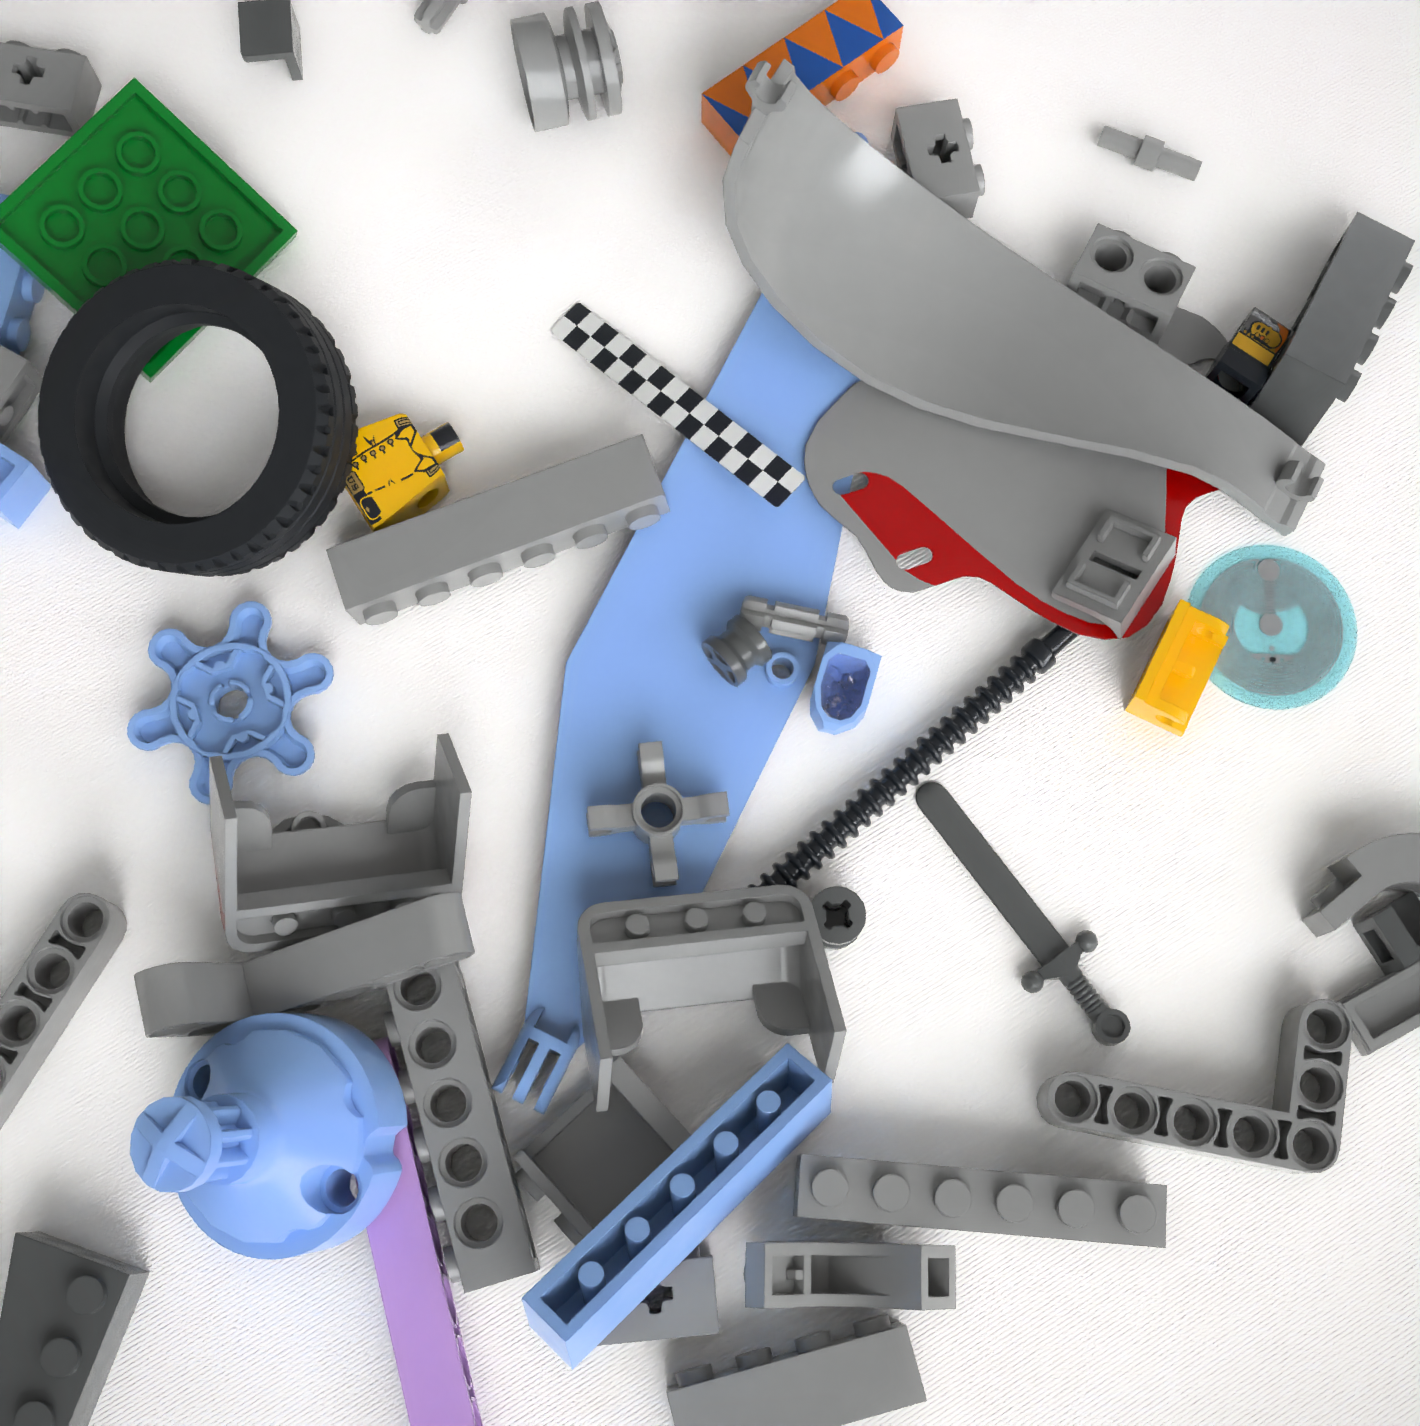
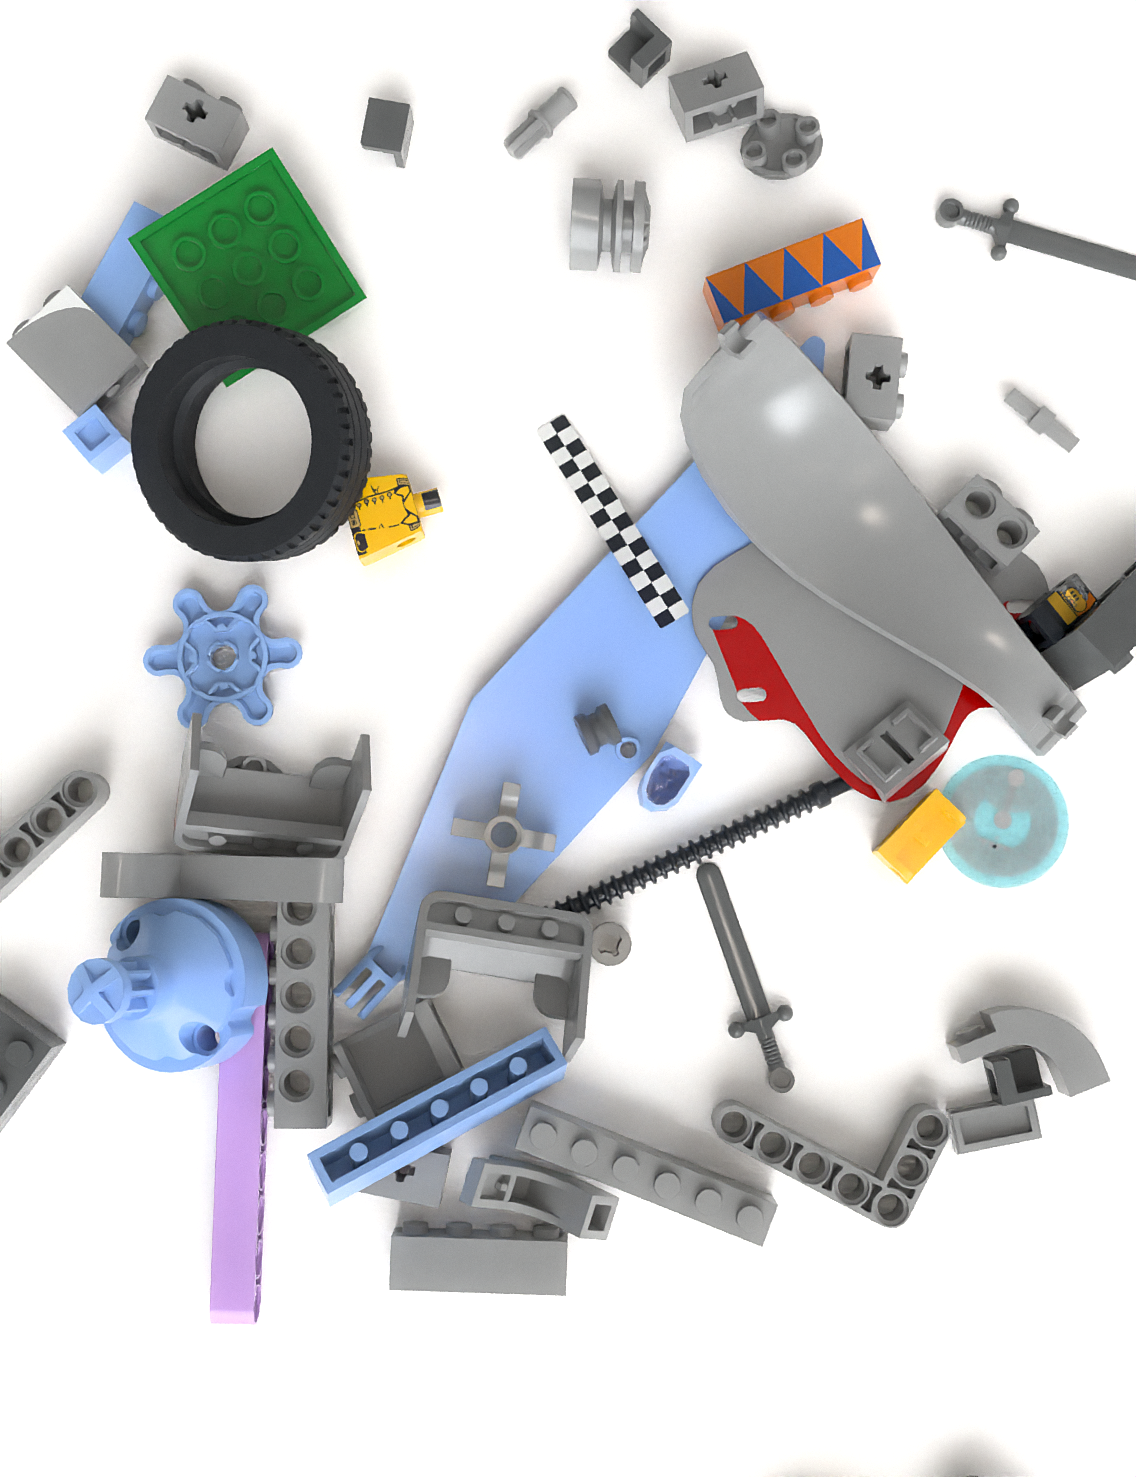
camera: 20 degrees right, 10 degrees up
(498, 532) = (451, 586): light grey brick -> none
(795, 620) = (647, 717): light grey axle -> none

